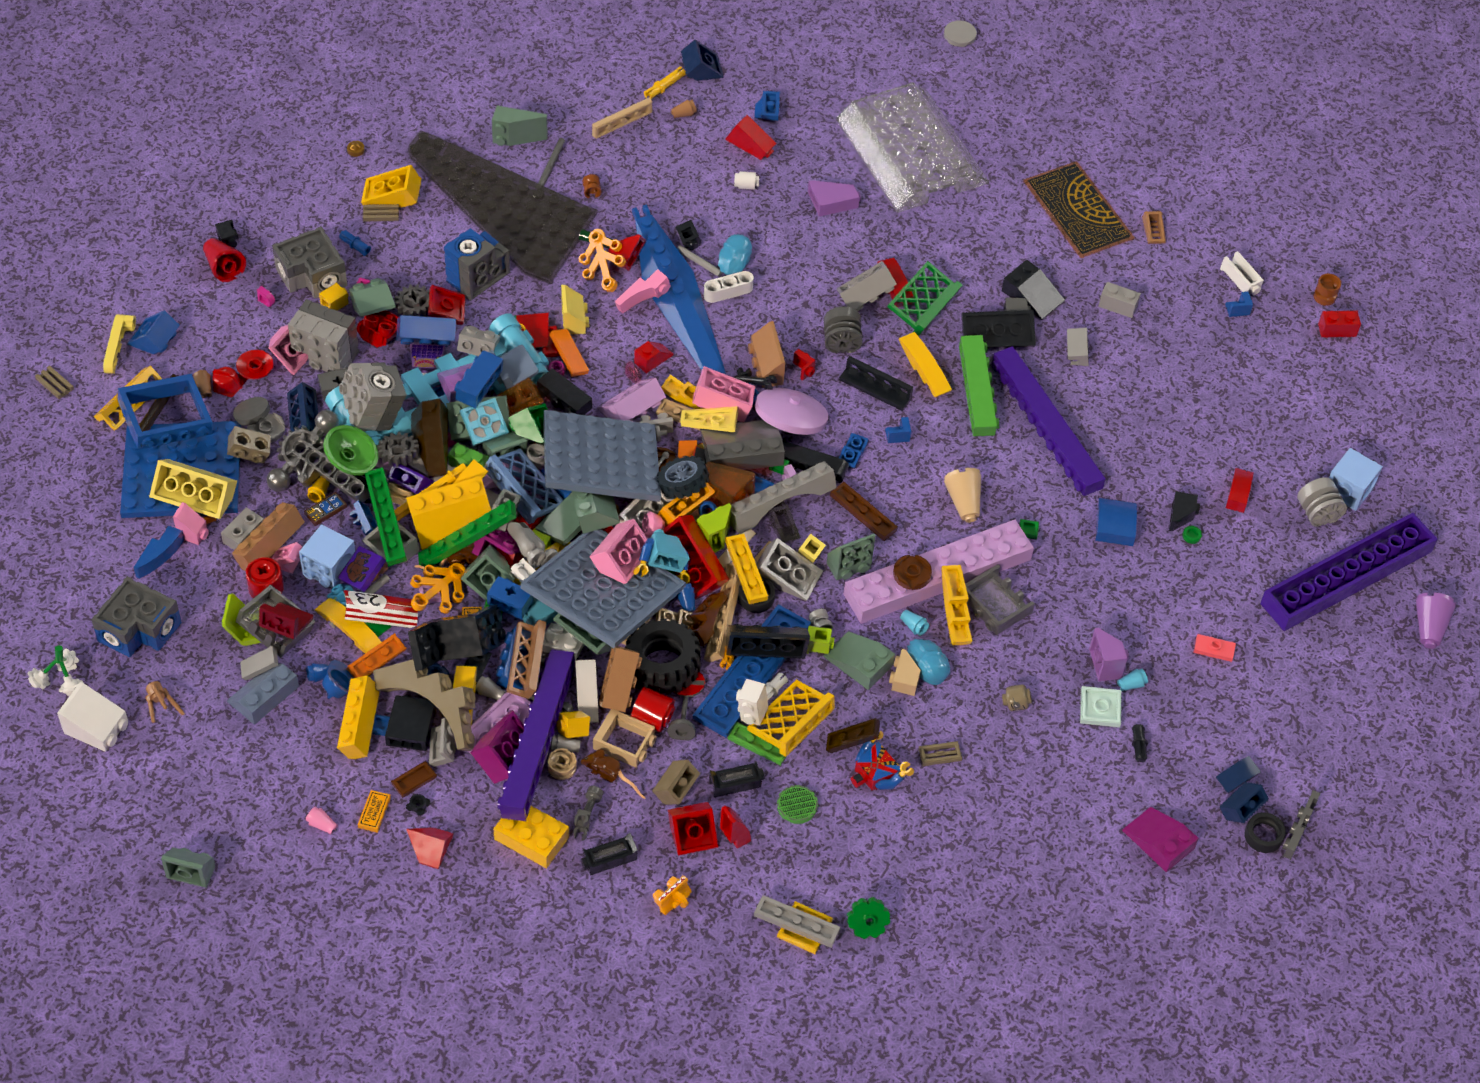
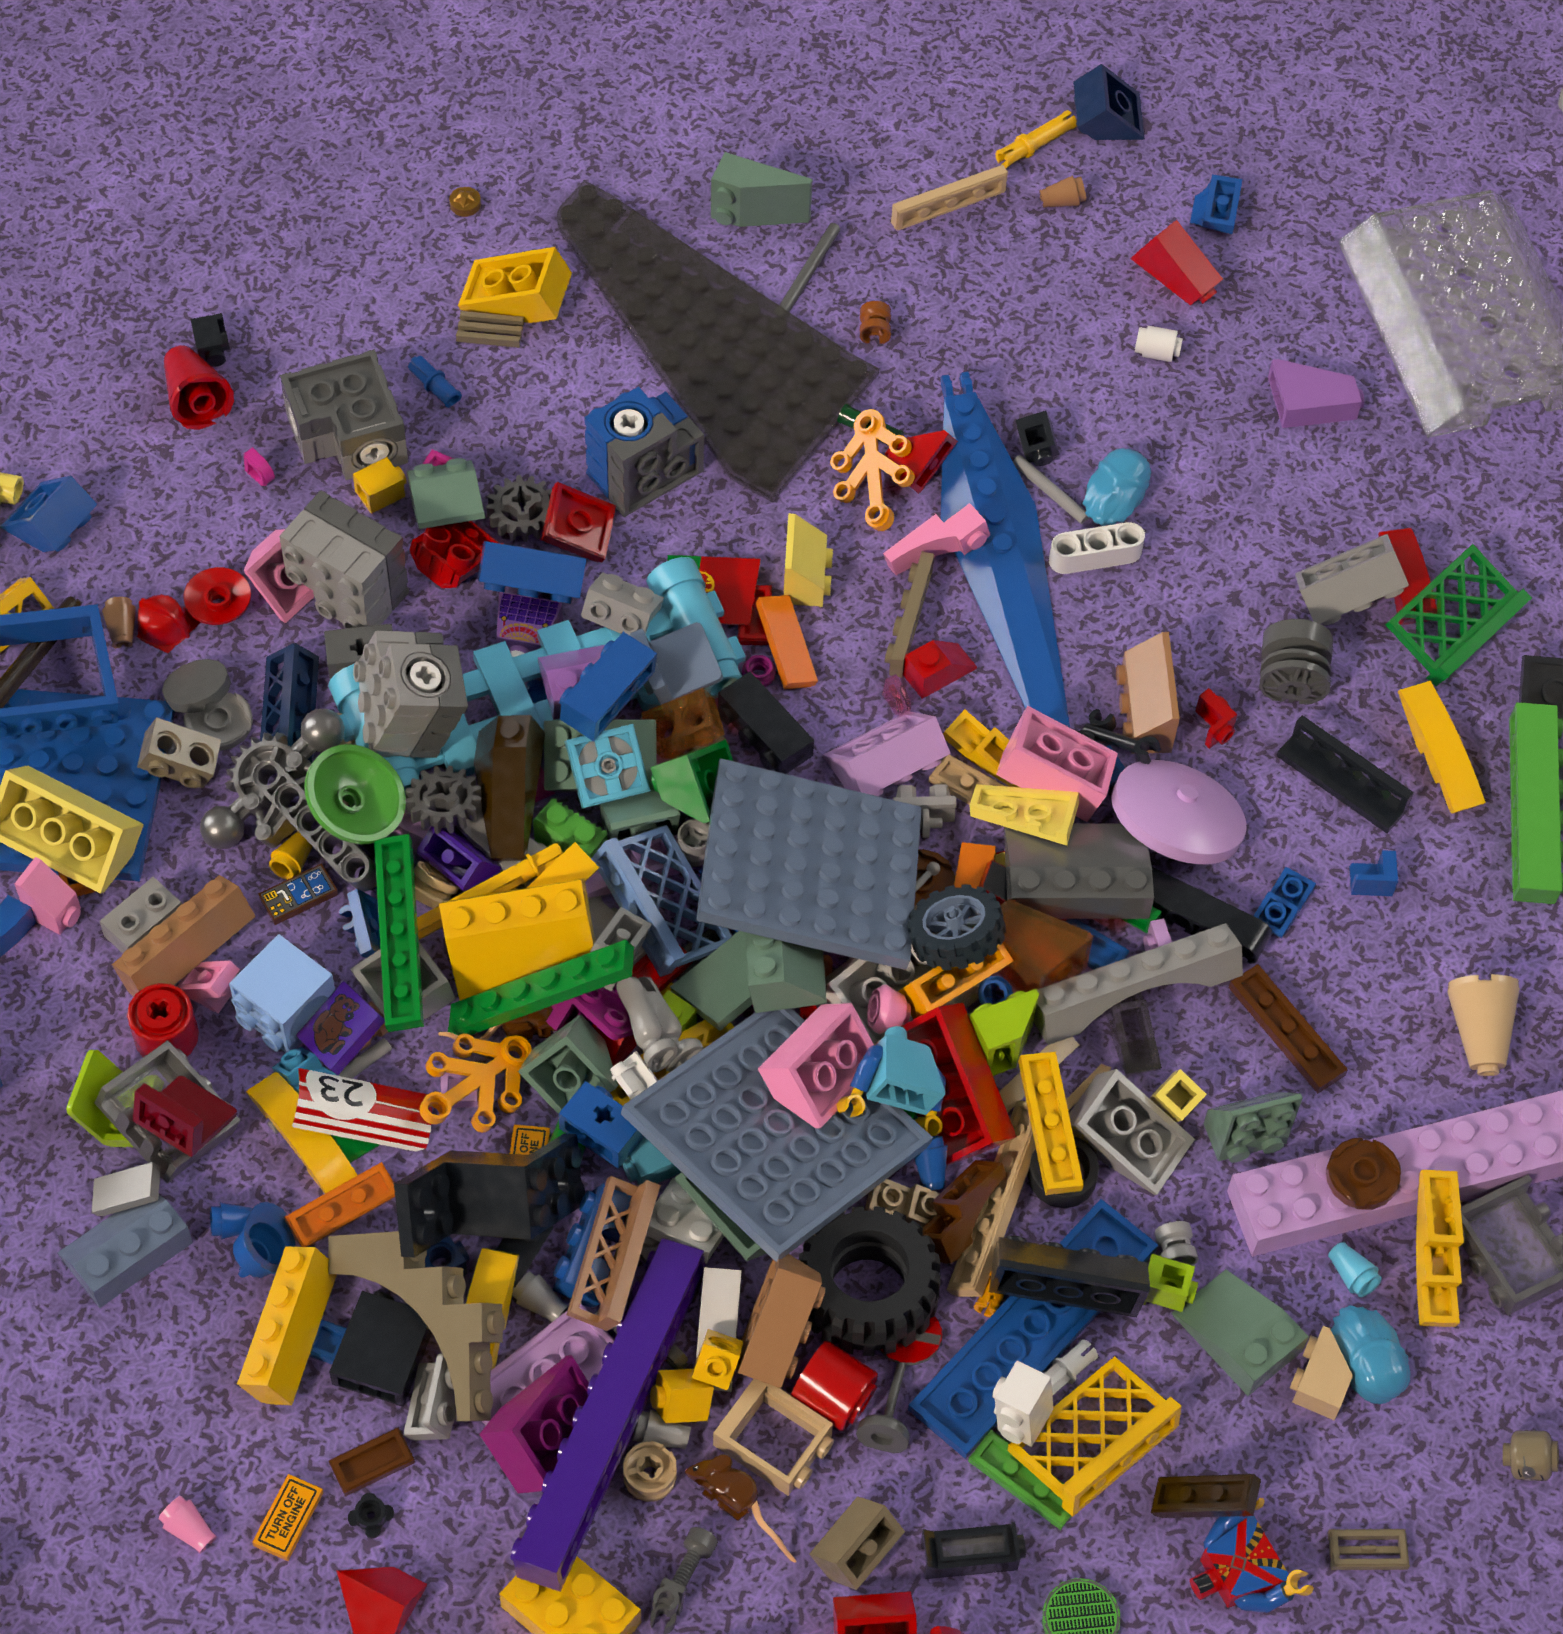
camera: 10 degrees right, 5 degrees up
(589, 703) = (717, 1359): none -> yellow brick
(633, 326) = (912, 602): none -> dark tan plate

